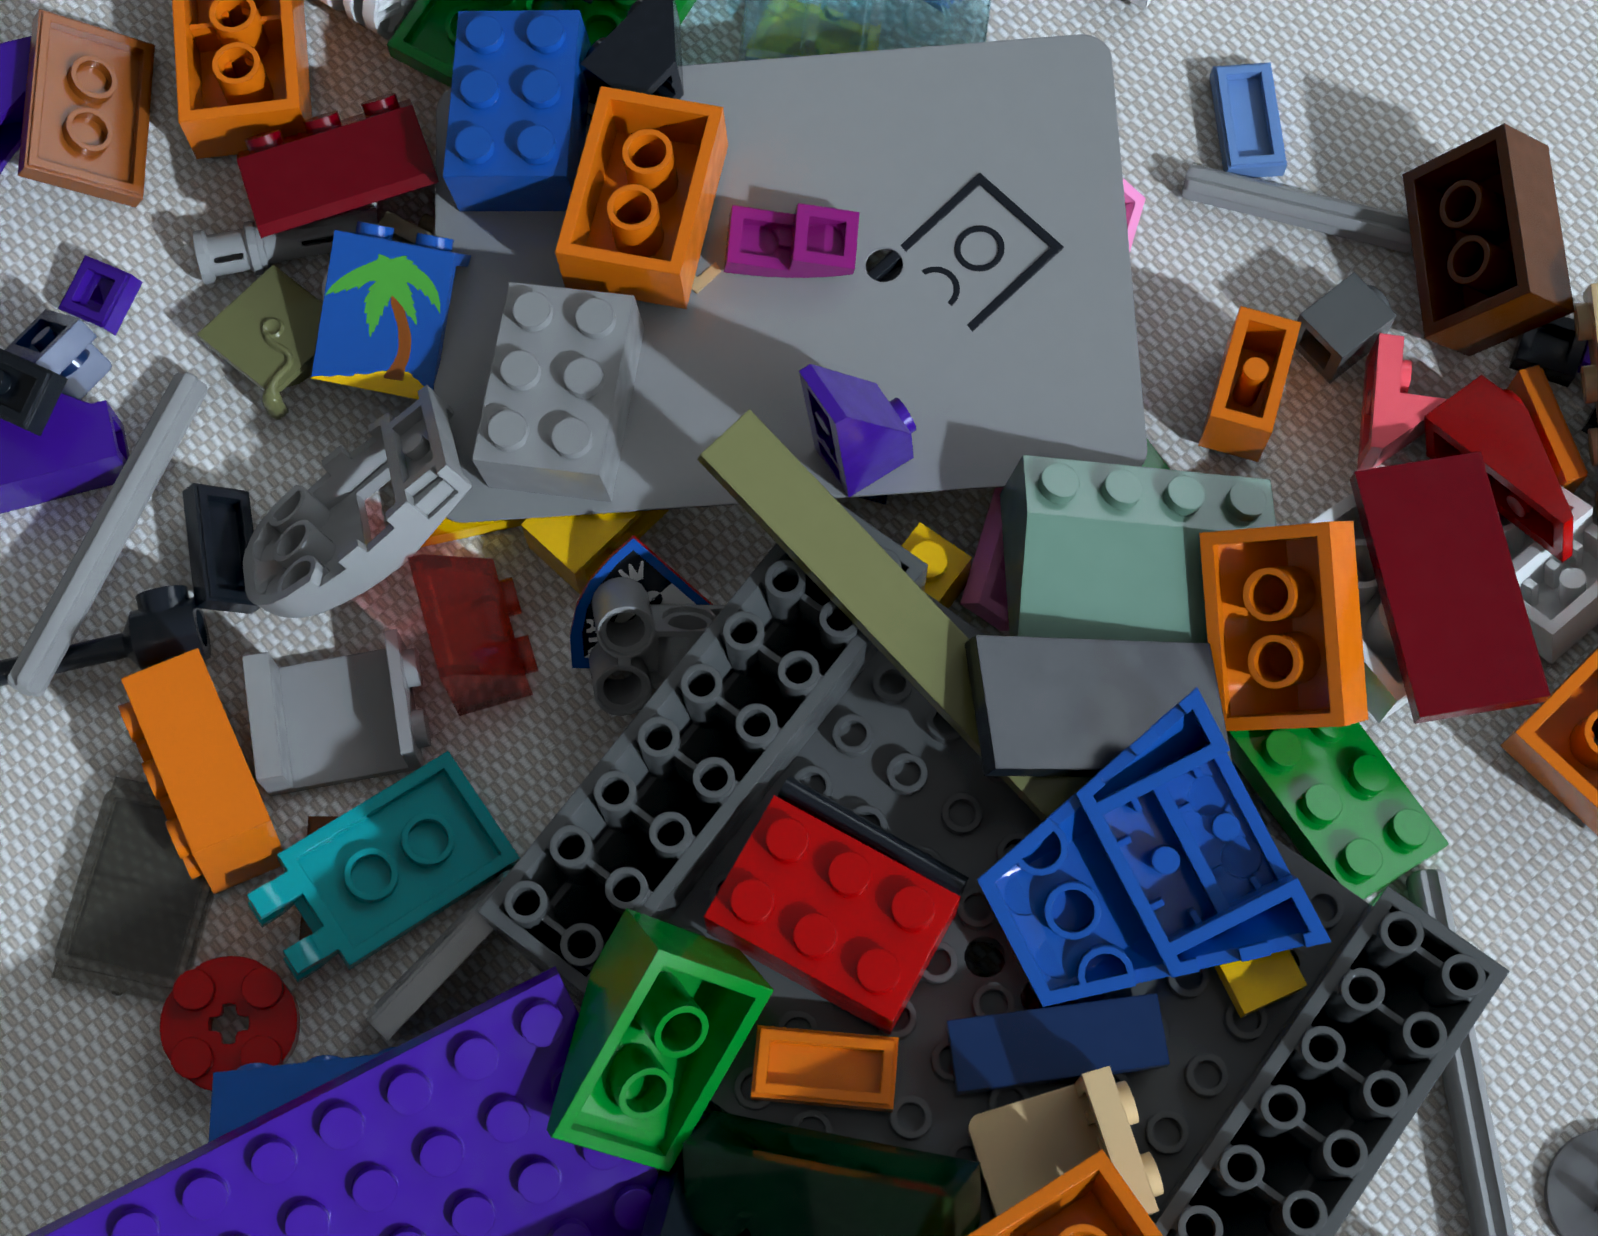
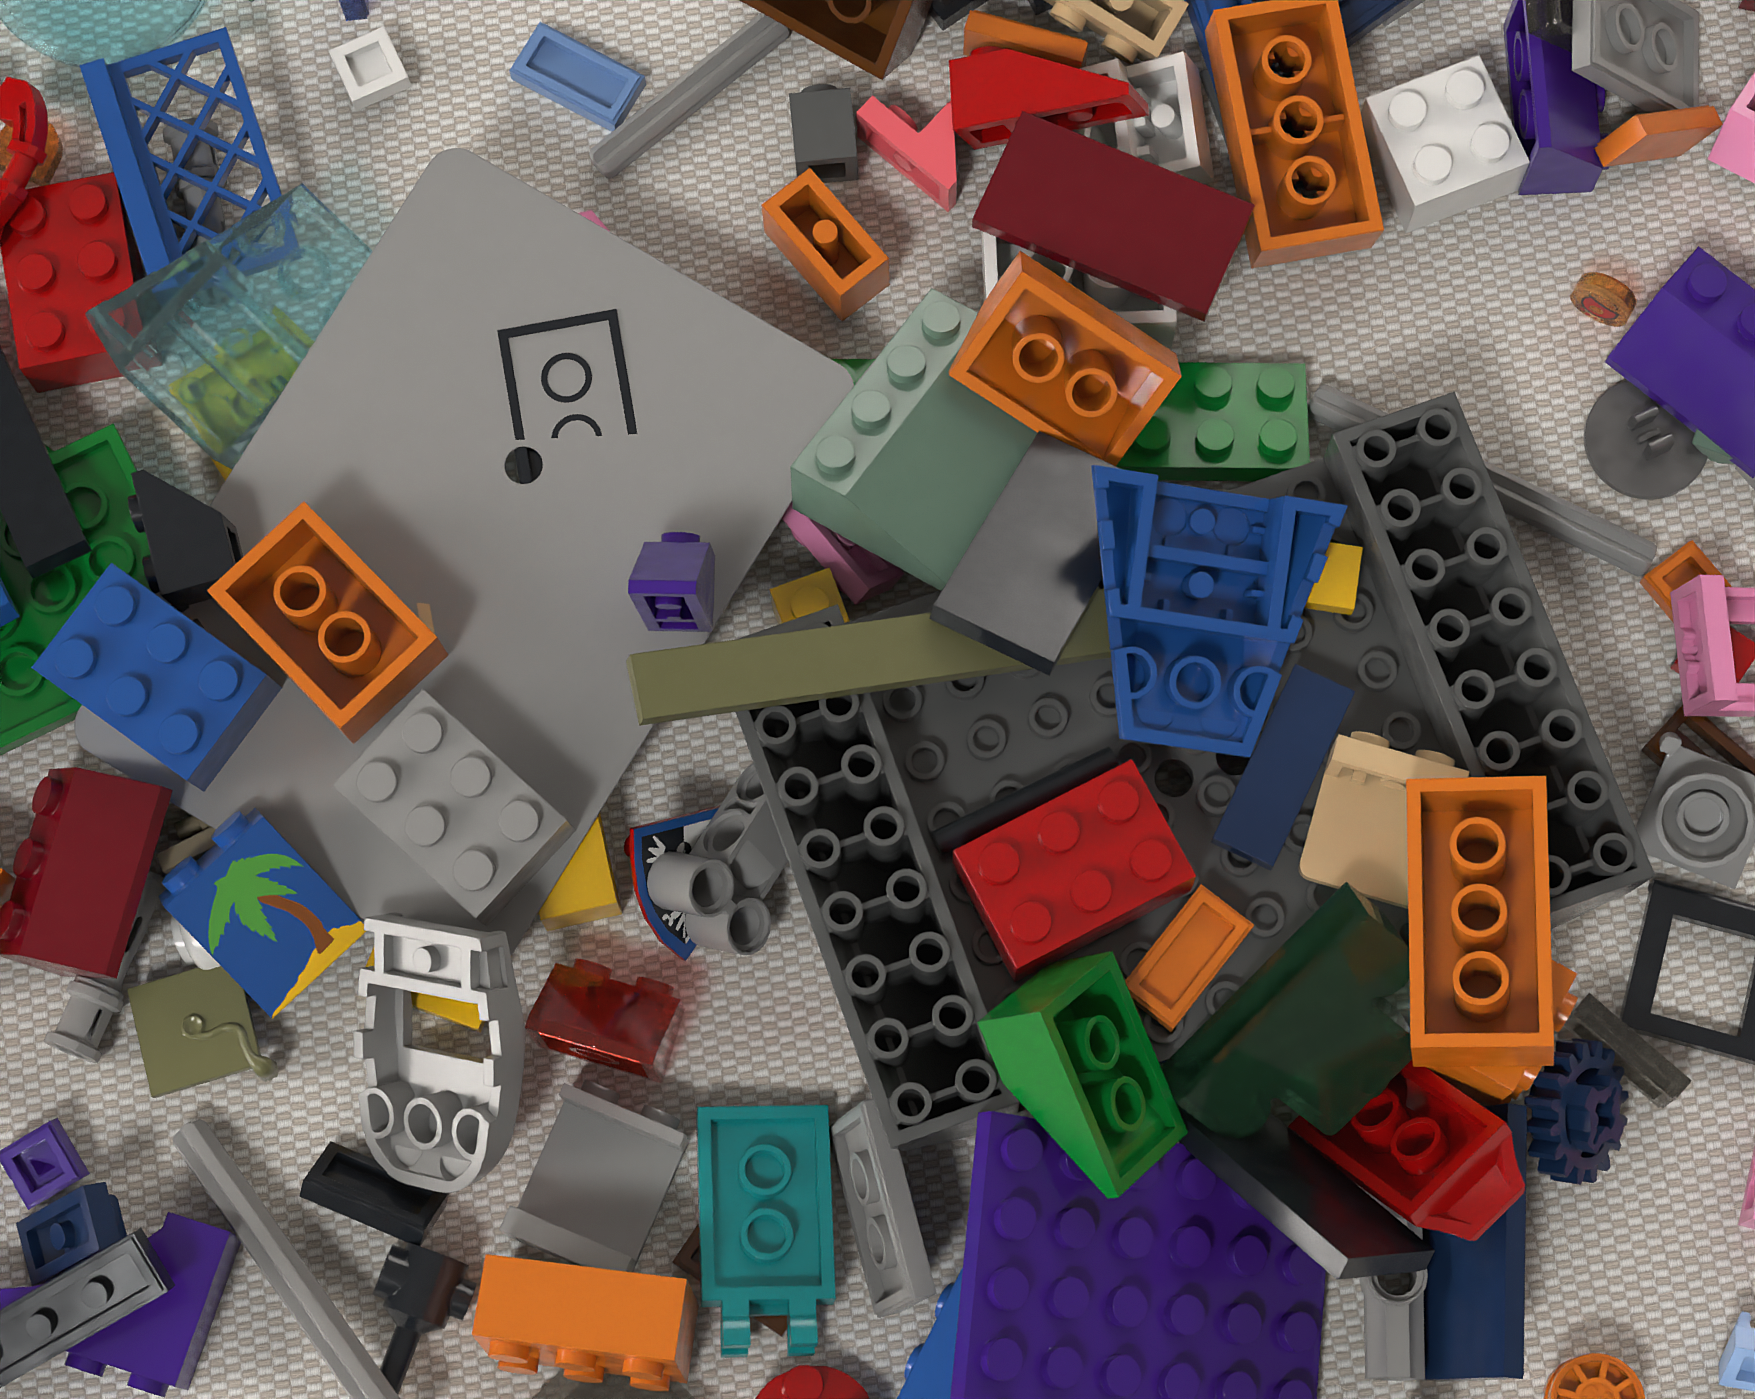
camera: 55 degrees left, 5 degrees up
(796, 245) = (451, 528): magenta slope -> none

